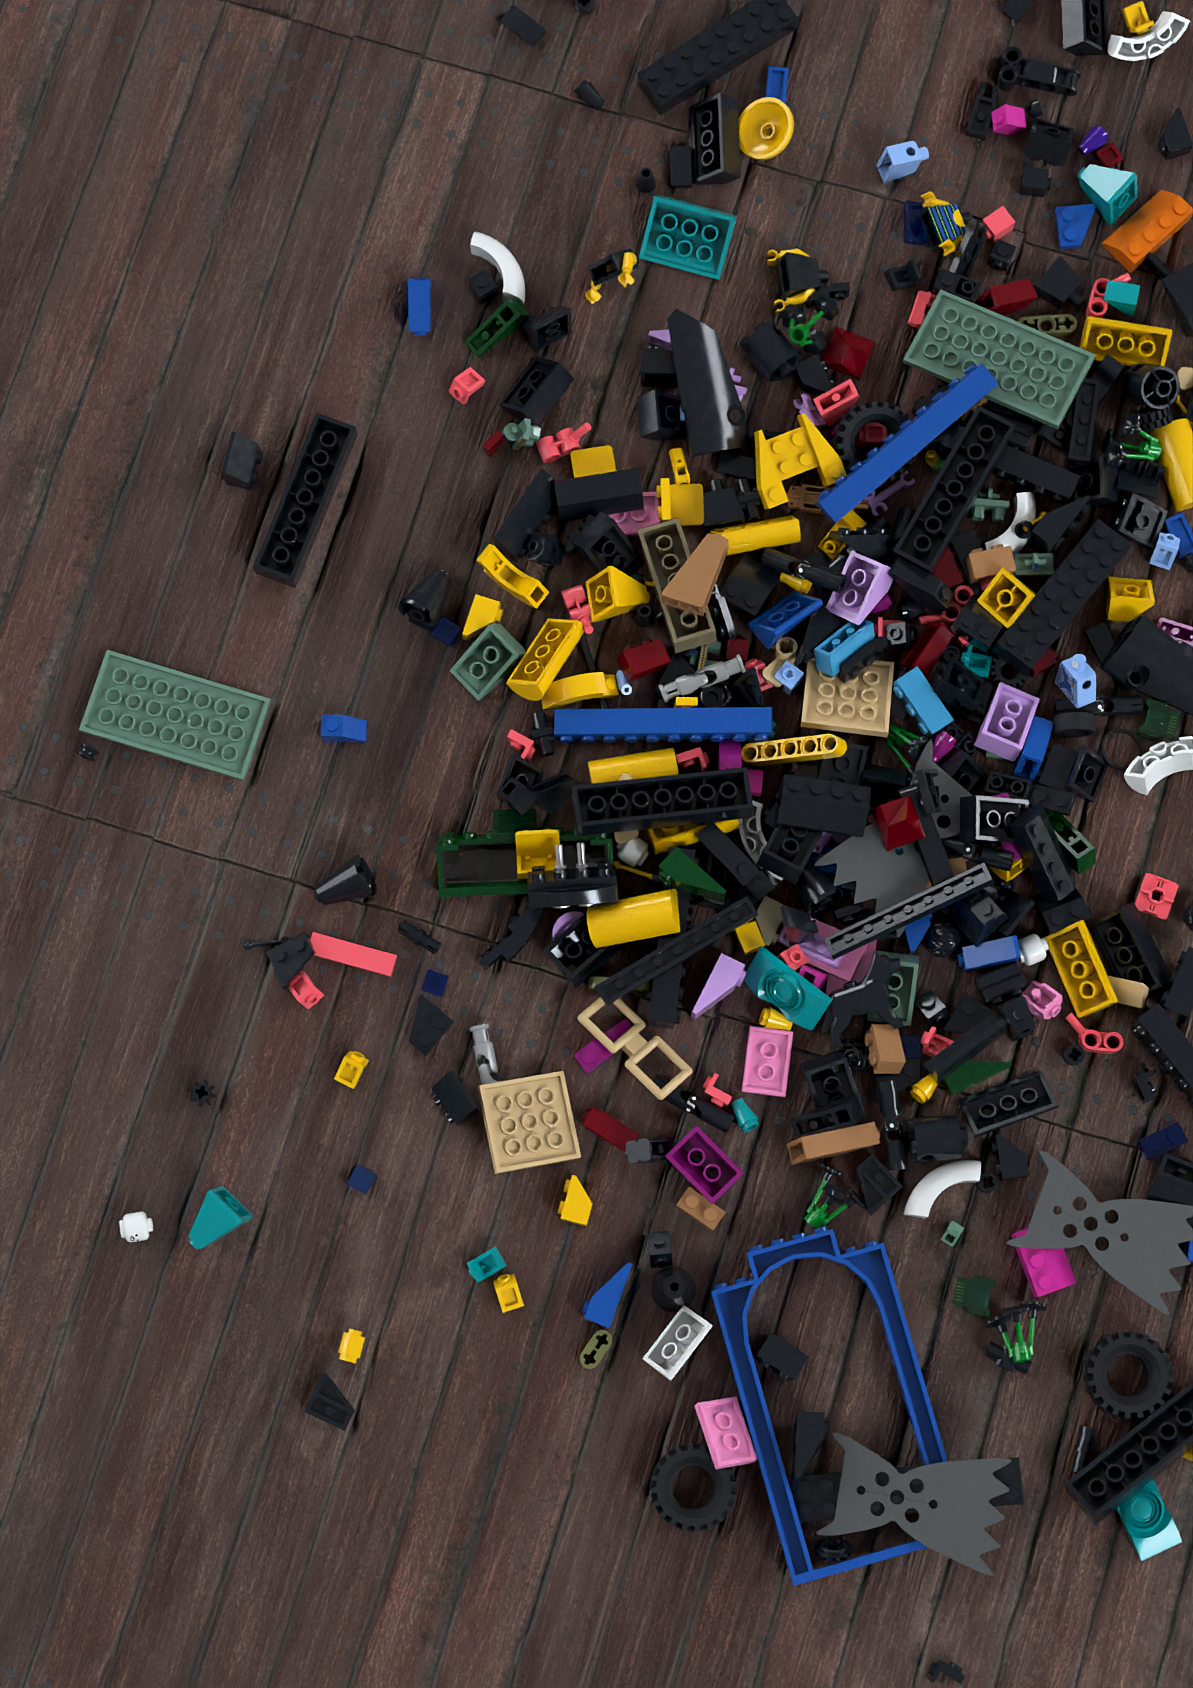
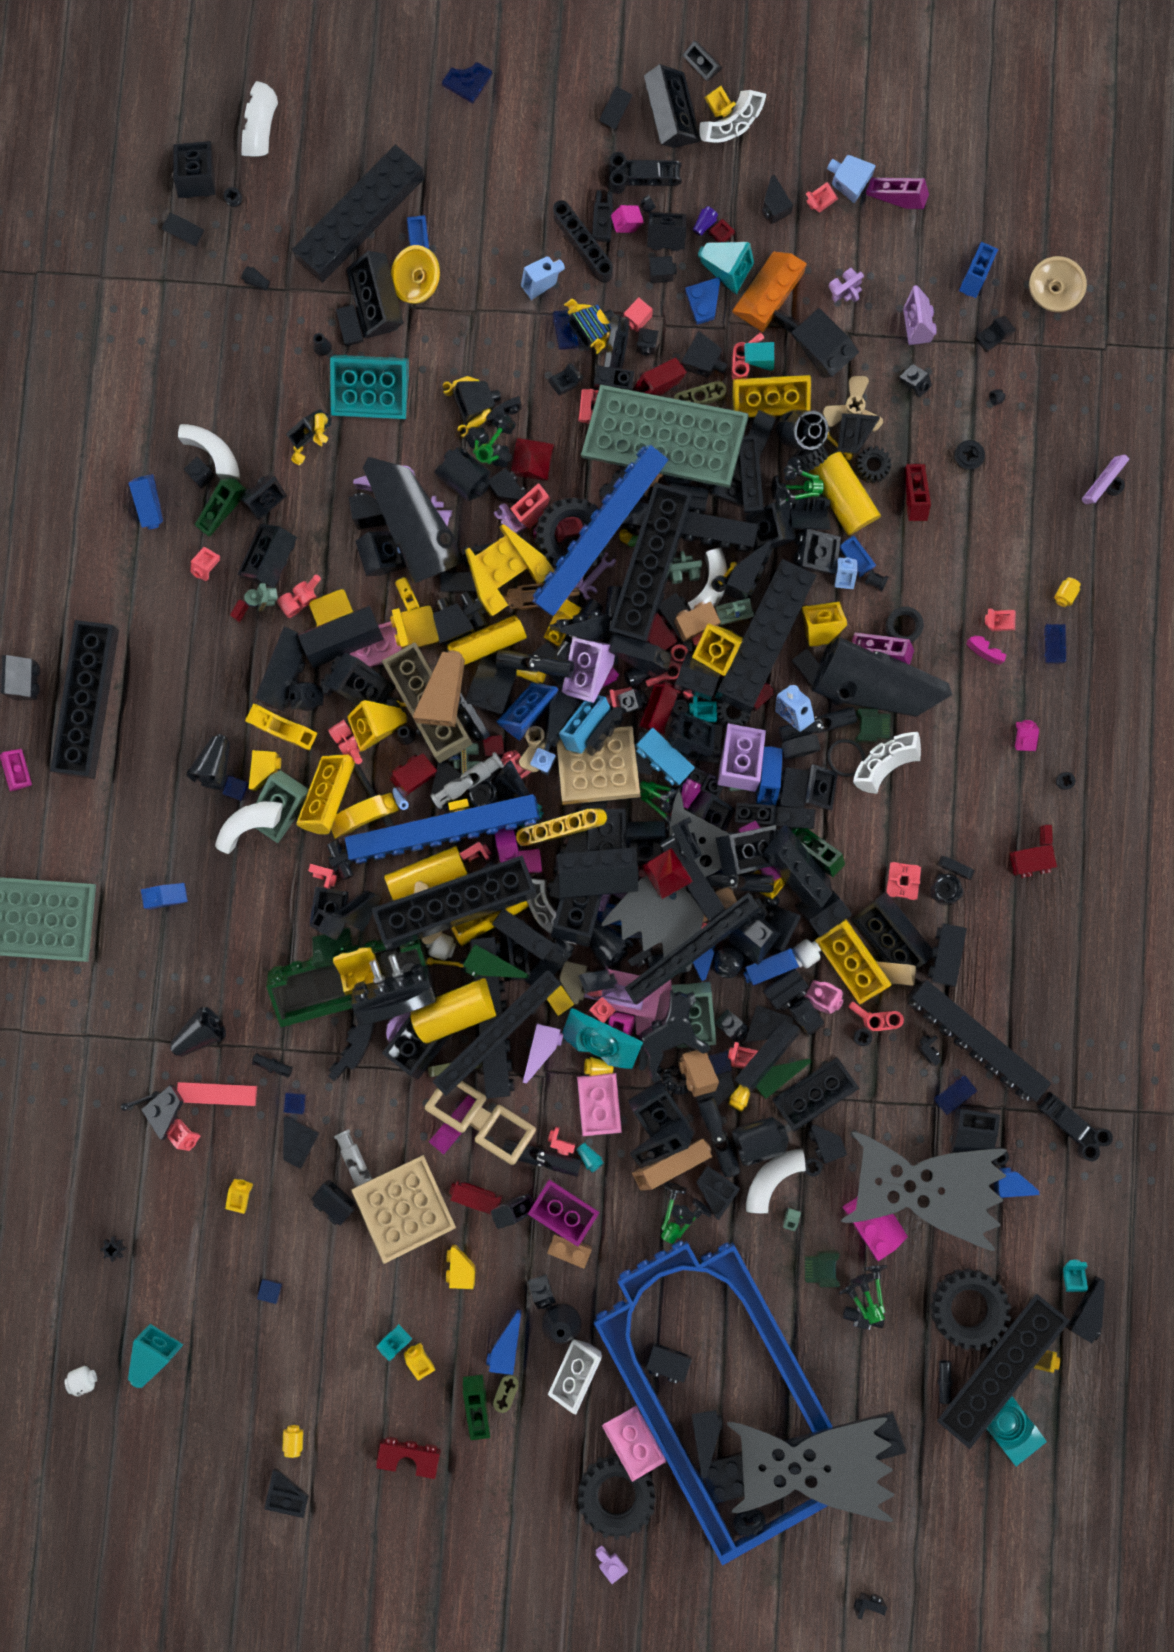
camera: 10 degrees left, 5 degrees up
(211, 558) = (15, 769): none -> dark pink slope
(452, 664) = (252, 816): none -> white brick
(493, 1399) = (425, 1457): none -> dark red arch
(560, 1356) = (476, 1407): none -> dark green slope
(671, 1564) = (612, 1565): none -> lavender plate
(956, 124) = (581, 233): none -> black beam

